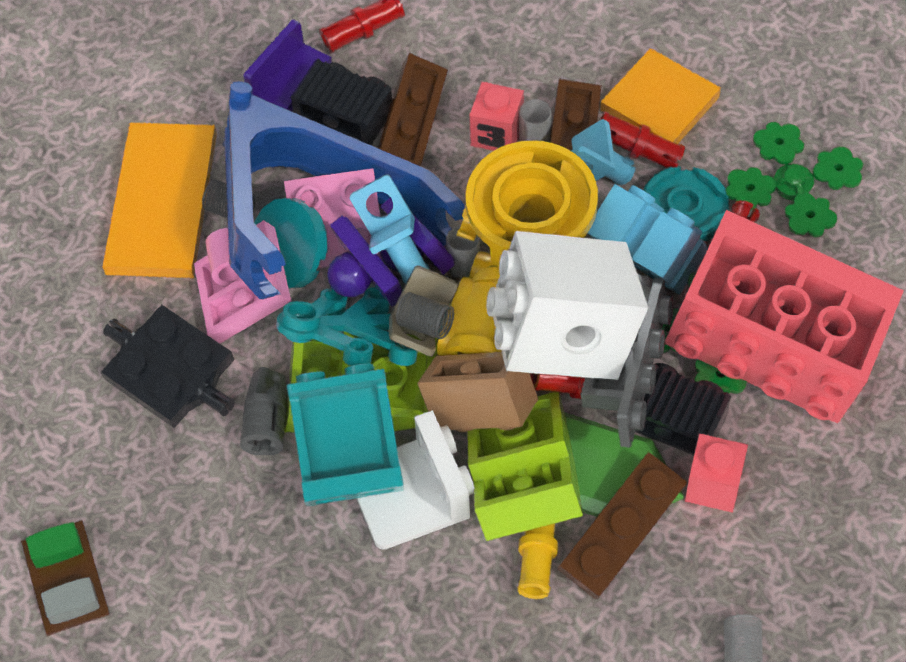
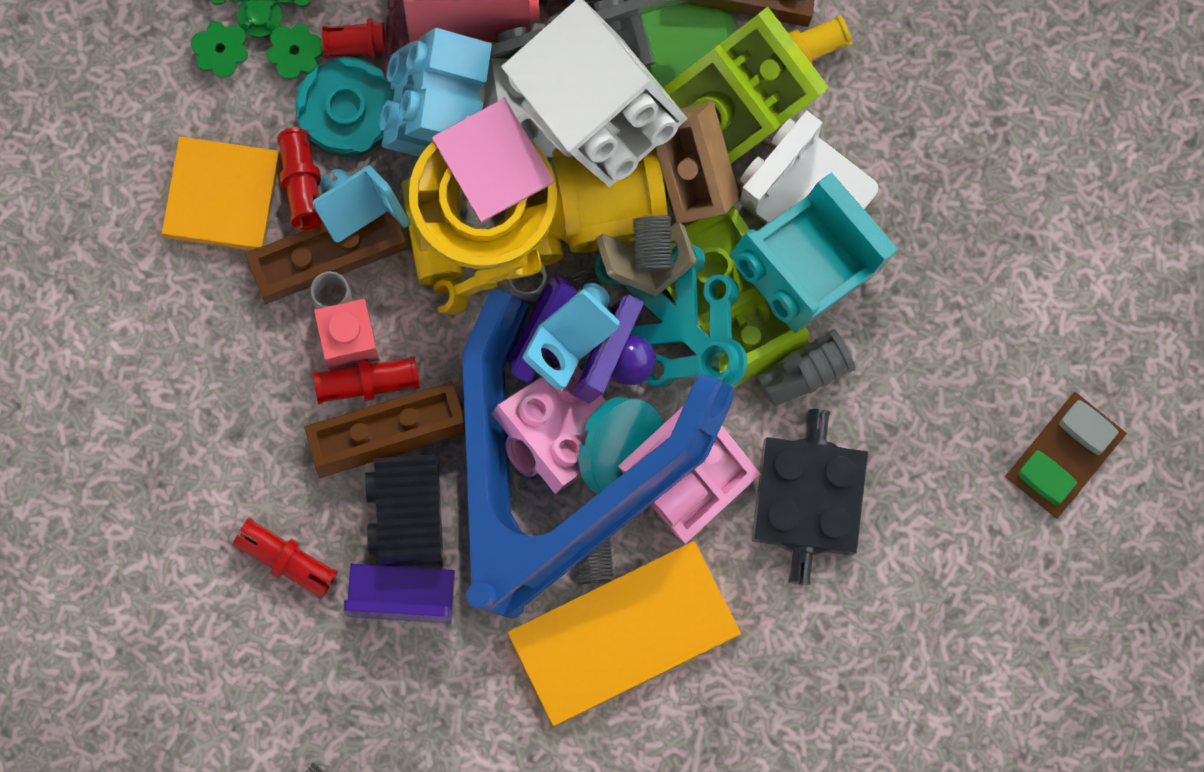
camera: 125 degrees left, 20 degrees up
(455, 123) = (366, 380): none -> red pin
(555, 207) = (493, 160): none -> bright pink window

